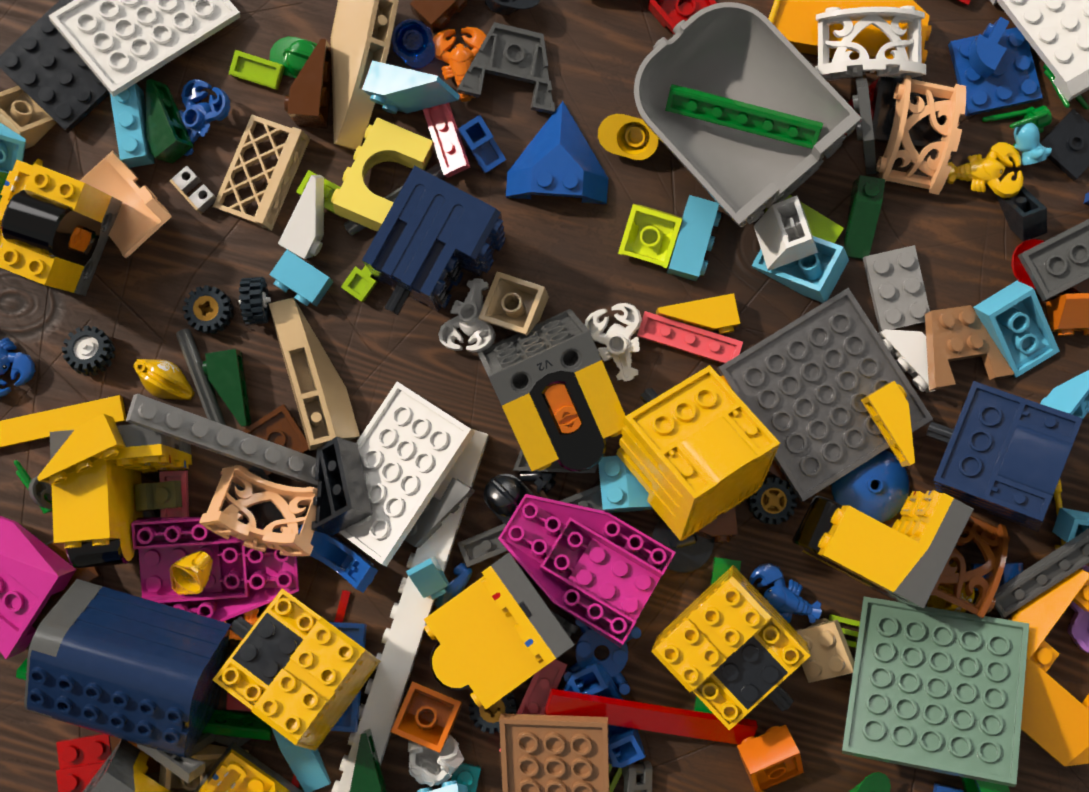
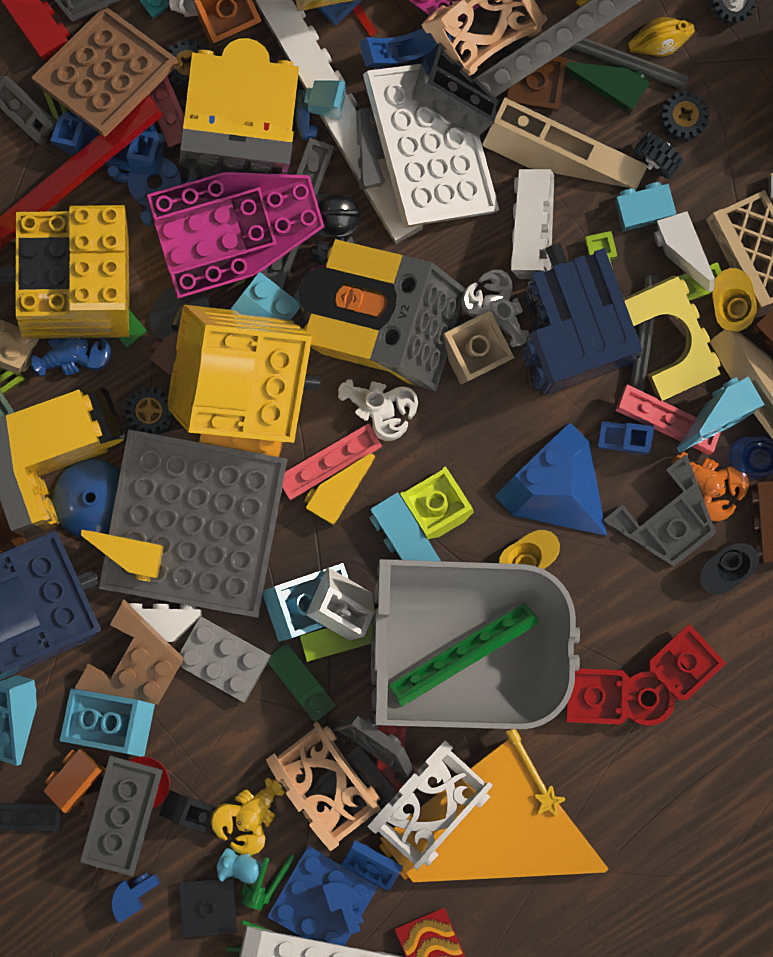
camera: 125 degrees right, 0 degrees up
(313, 153) = (734, 300): none -> yellow piece
(385, 346) = (532, 221): none -> white wedge
(942, 55) = (372, 865): none -> blue bracket

